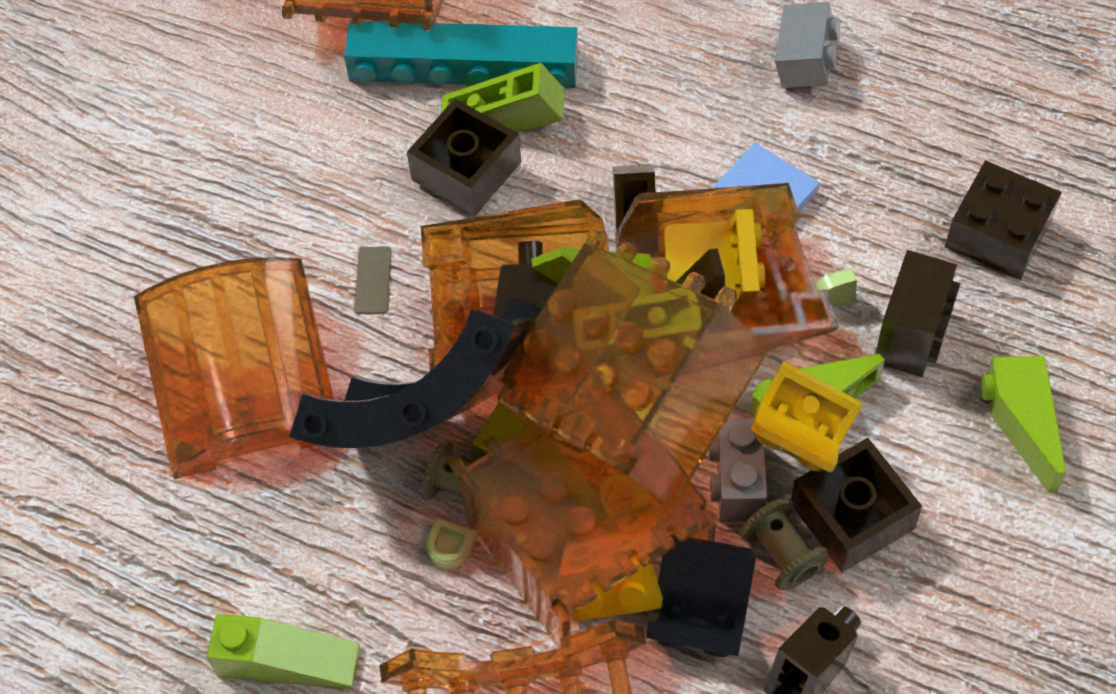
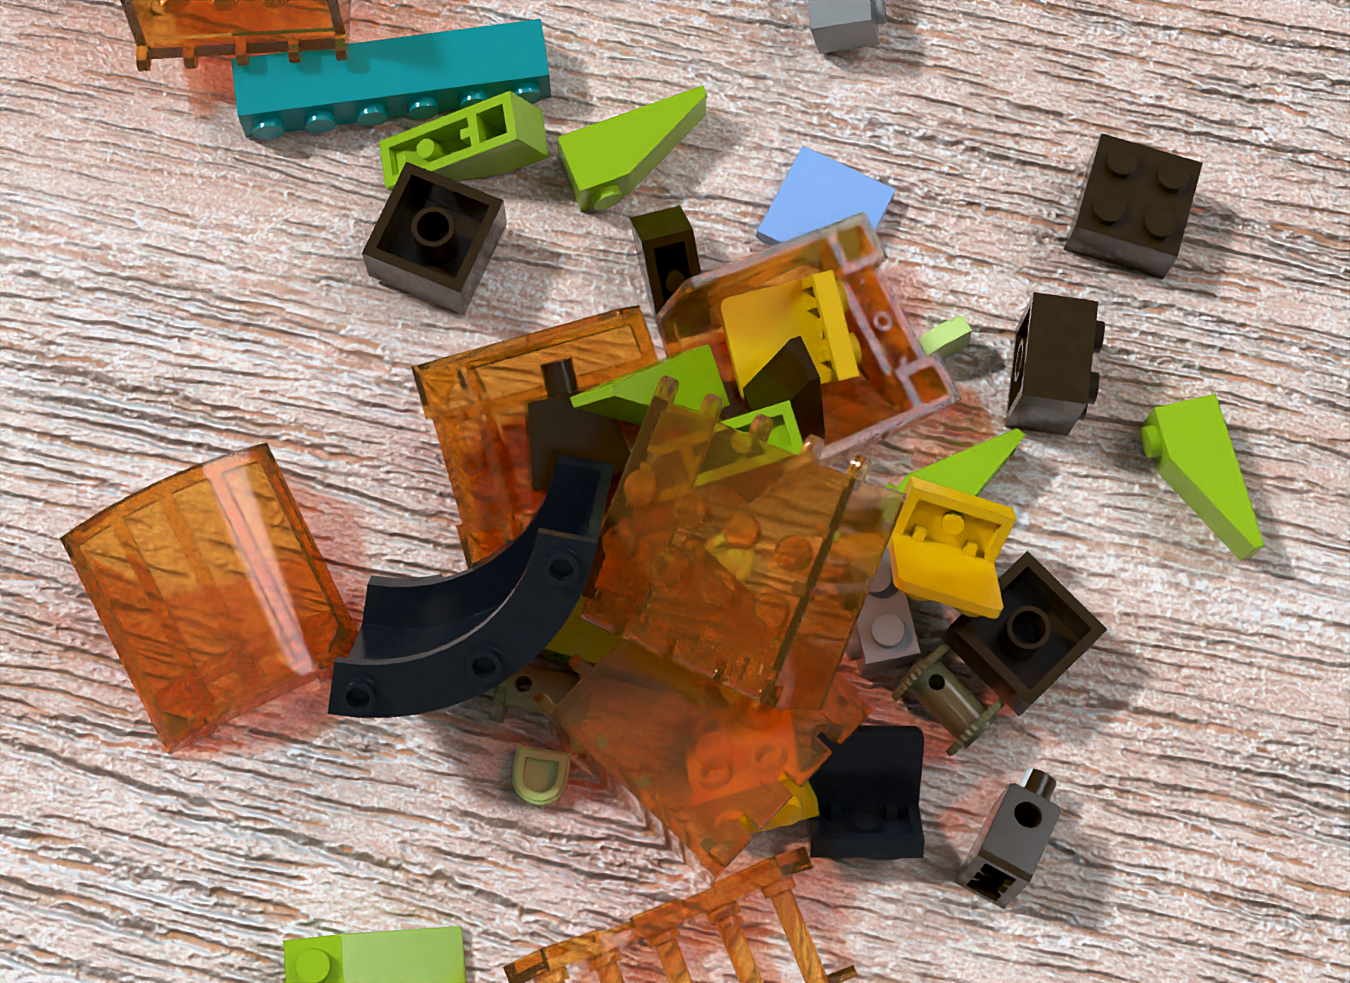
camera: 20 degrees left, 15 degrees up
(372, 279) = (352, 427): dark tan sticker -> none
(618, 124) = (619, 152): none -> lime slope

